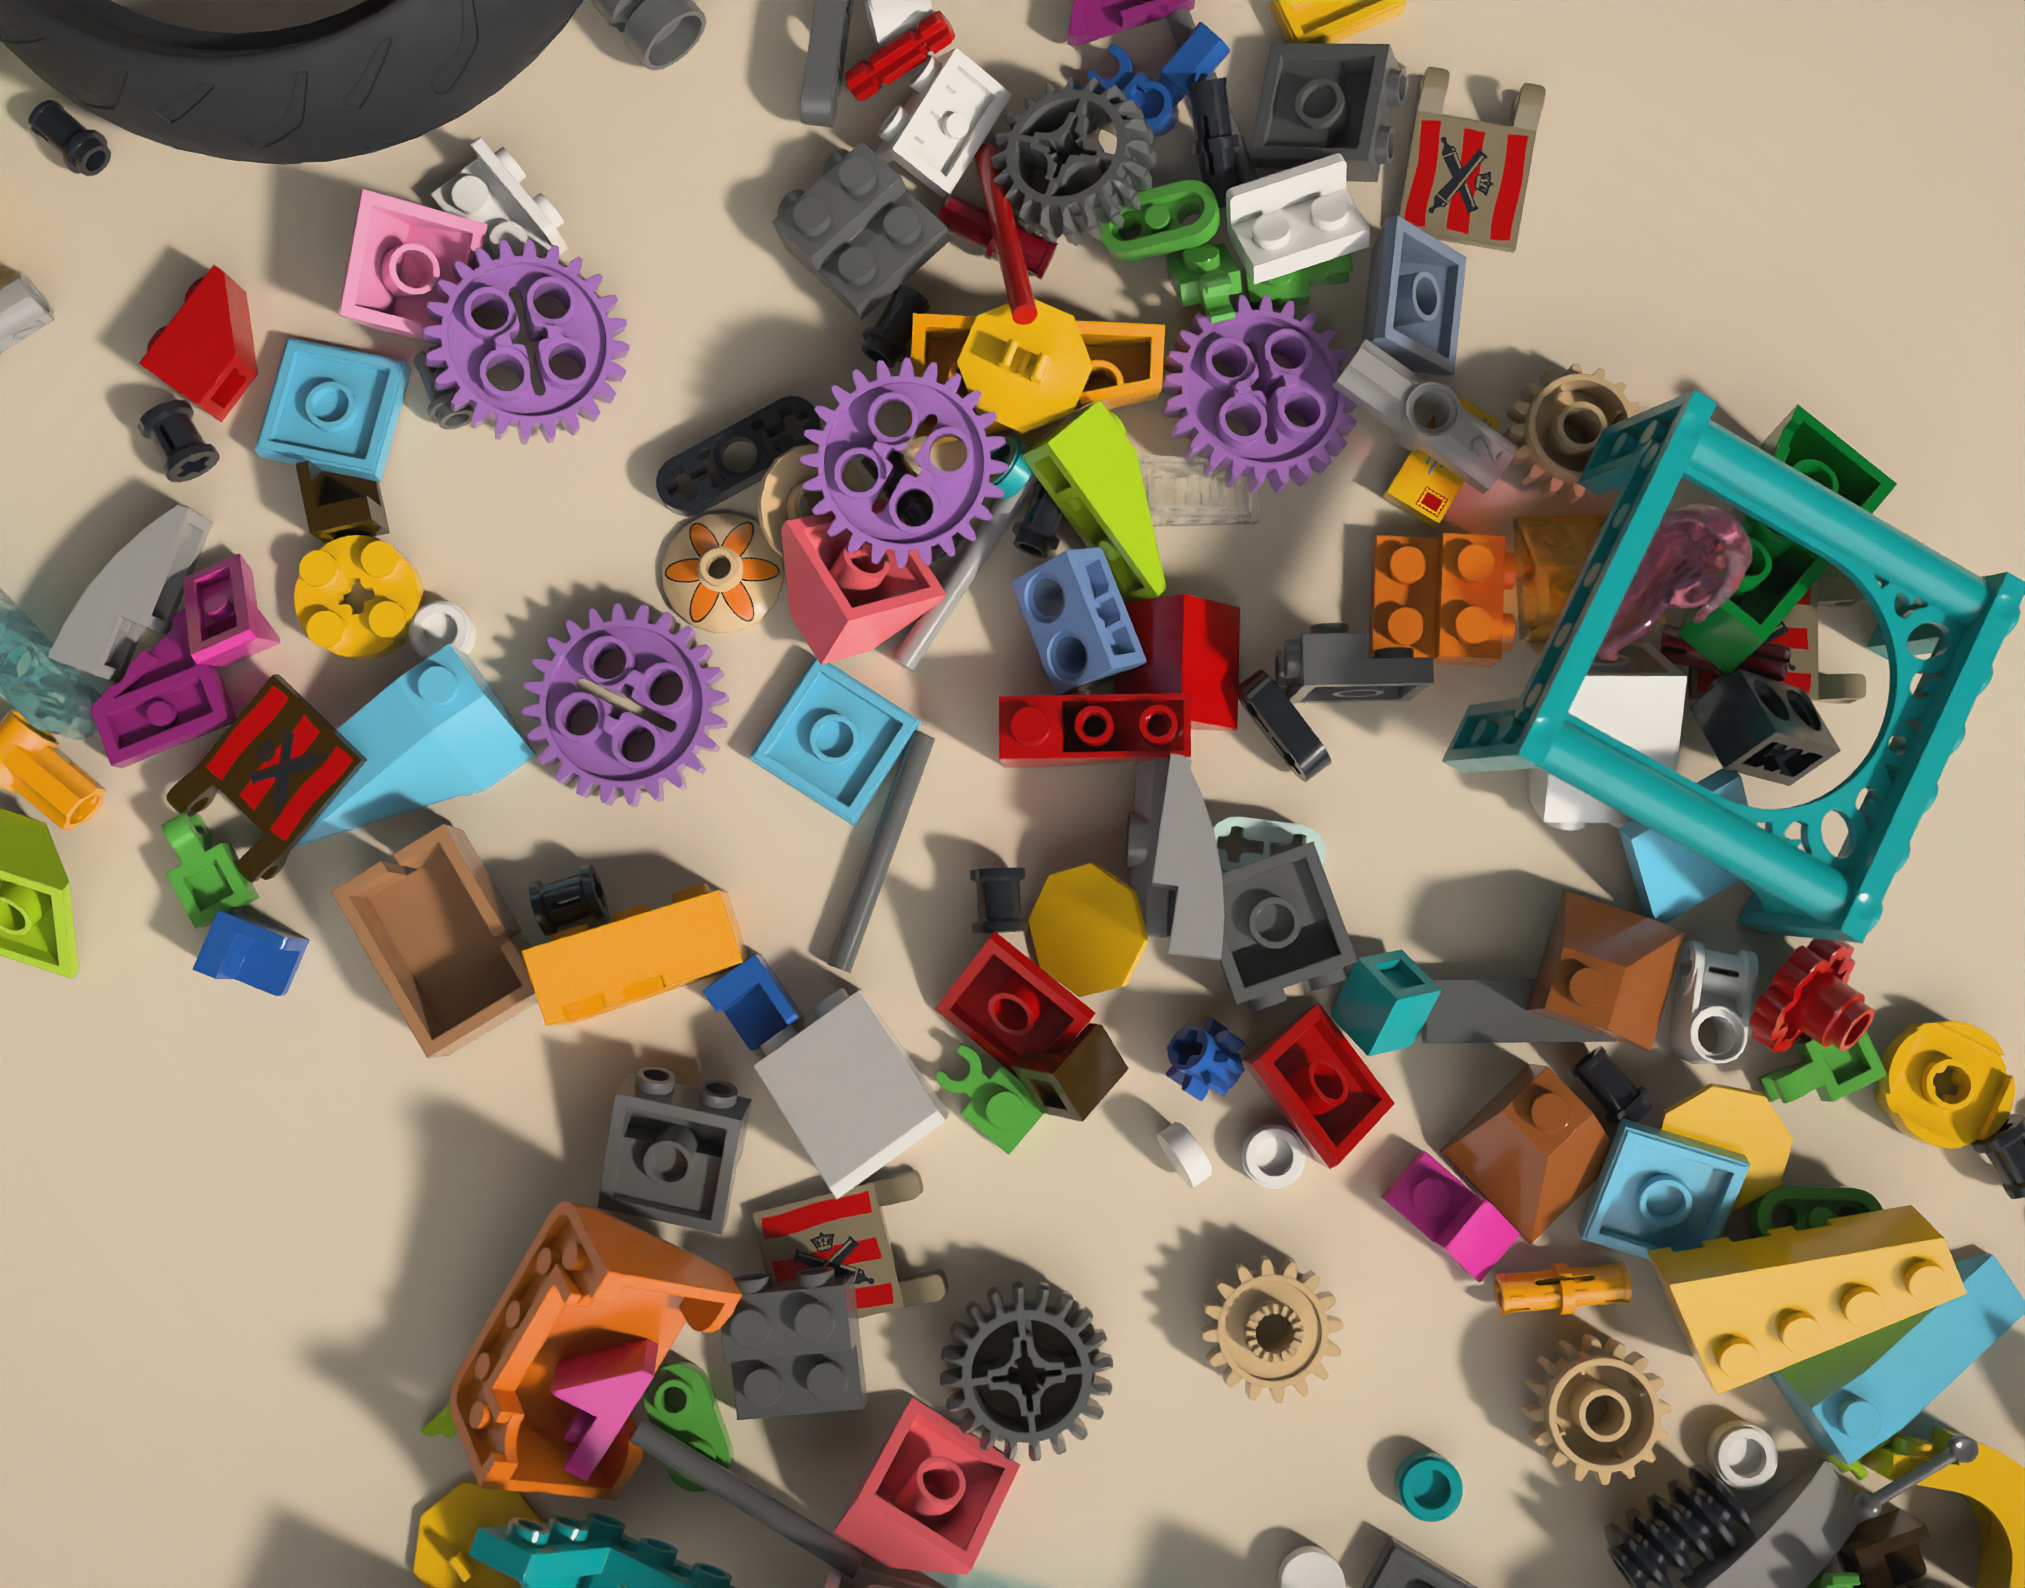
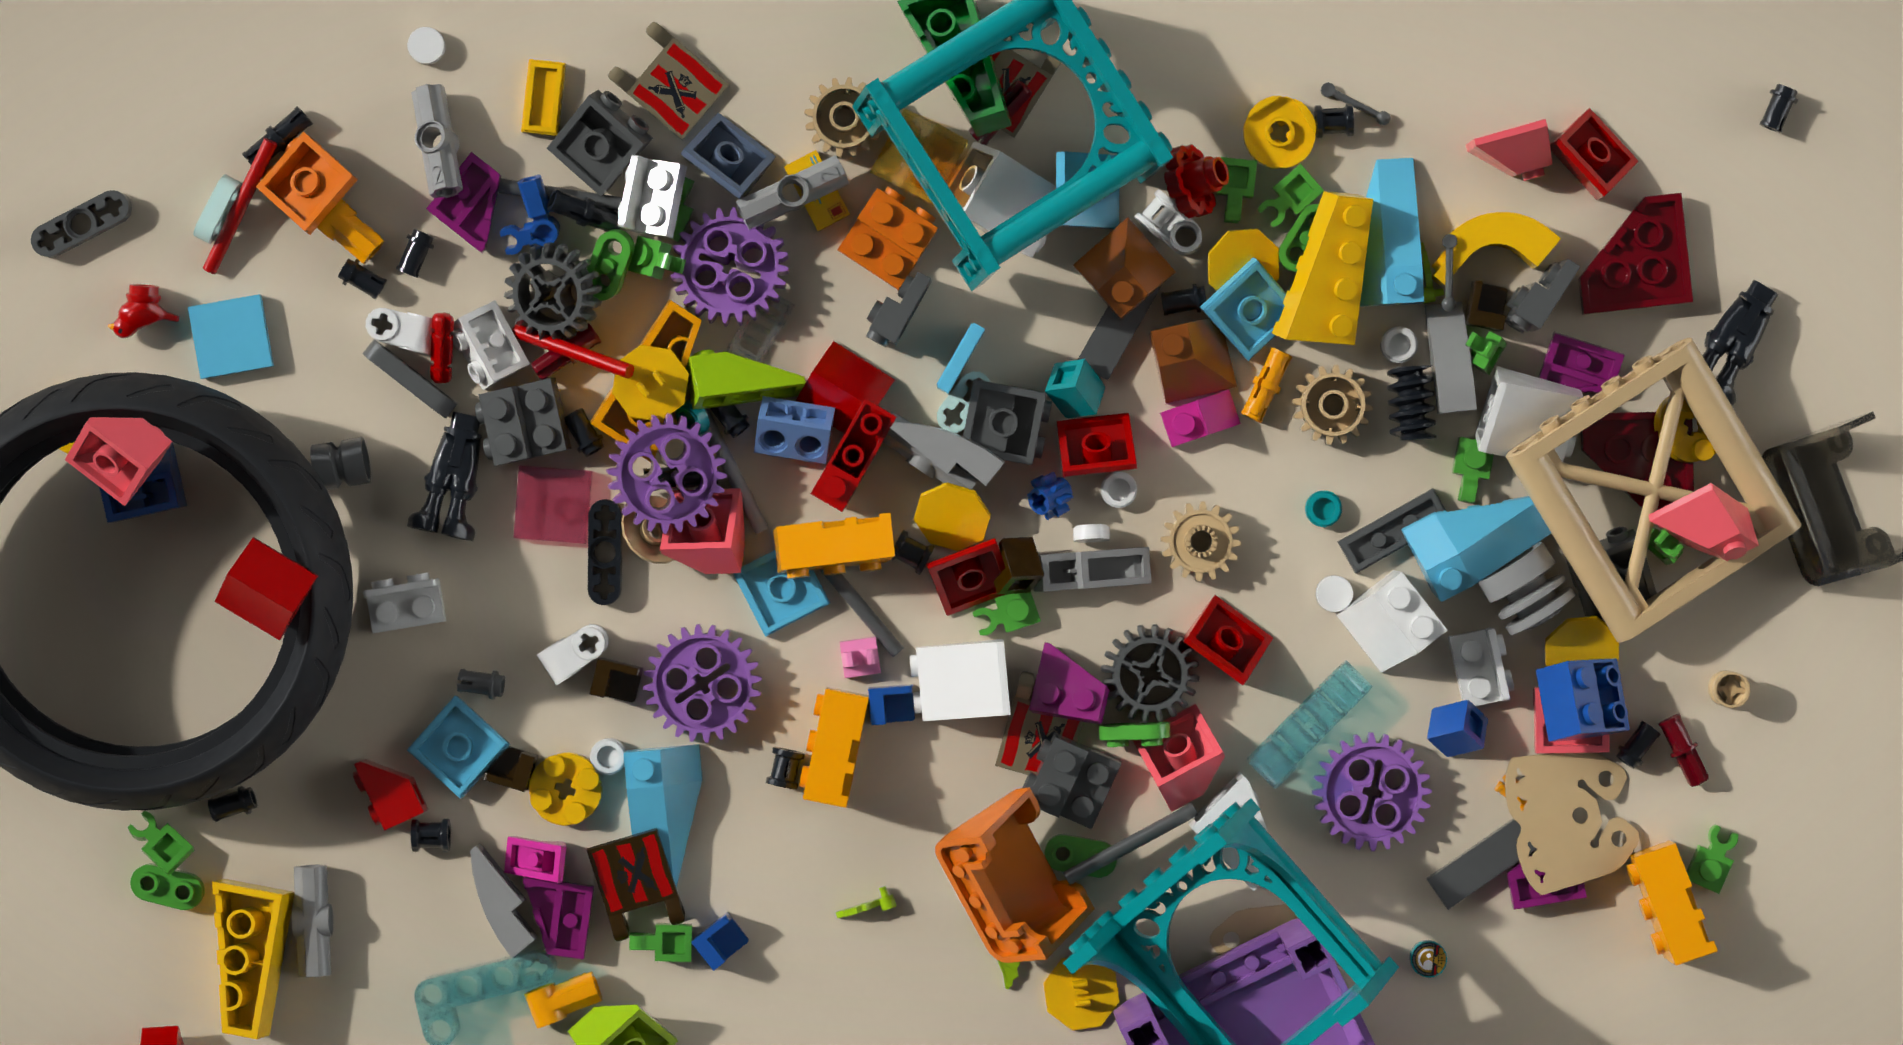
camera: 60 degrees left, 5 degrees up
(399, 258) = (415, 663): bright pink slope -> none
(440, 940) = (771, 839): medium nougat piece -> none
(452, 1167) = (885, 902): none -> lime piece
(472, 351) = (493, 596): medium lavender gear -> none
(559, 575) = (616, 680): none -> dark brown panel
(561, 490) = (569, 655): none -> white piece
(605, 1391) = (1038, 878): dark pink slope -> none
(673, 1149) = (941, 784): dark grey plate -> none
(727, 602) = (679, 596): tan dish -> none
(733, 177) = (454, 471): none -> black piece
(766, 342) = (552, 504): none -> clear pink tile
(798, 916) = (860, 657): none -> bright pink tile
(909, 1379) = (1120, 733): none -> bright green plate
(928, 1259) = (1067, 689): none -> magenta wing
(942, 778) = (834, 546): none -> light orange wedge
(1134, 1192) = (1094, 569): none -> light grey slope
(1144, 1462) = (1228, 639): none -> red slope
(1282, 725) = (906, 356): black beam -> none
(1334, 802) = (960, 358): none -> medium azure tile
(1690, 562) = (942, 125): clear pink piece -> none
(1763, 727) = (1049, 121): black brick -> none
(1868, 1158) = (1294, 192): none -> bright green plate

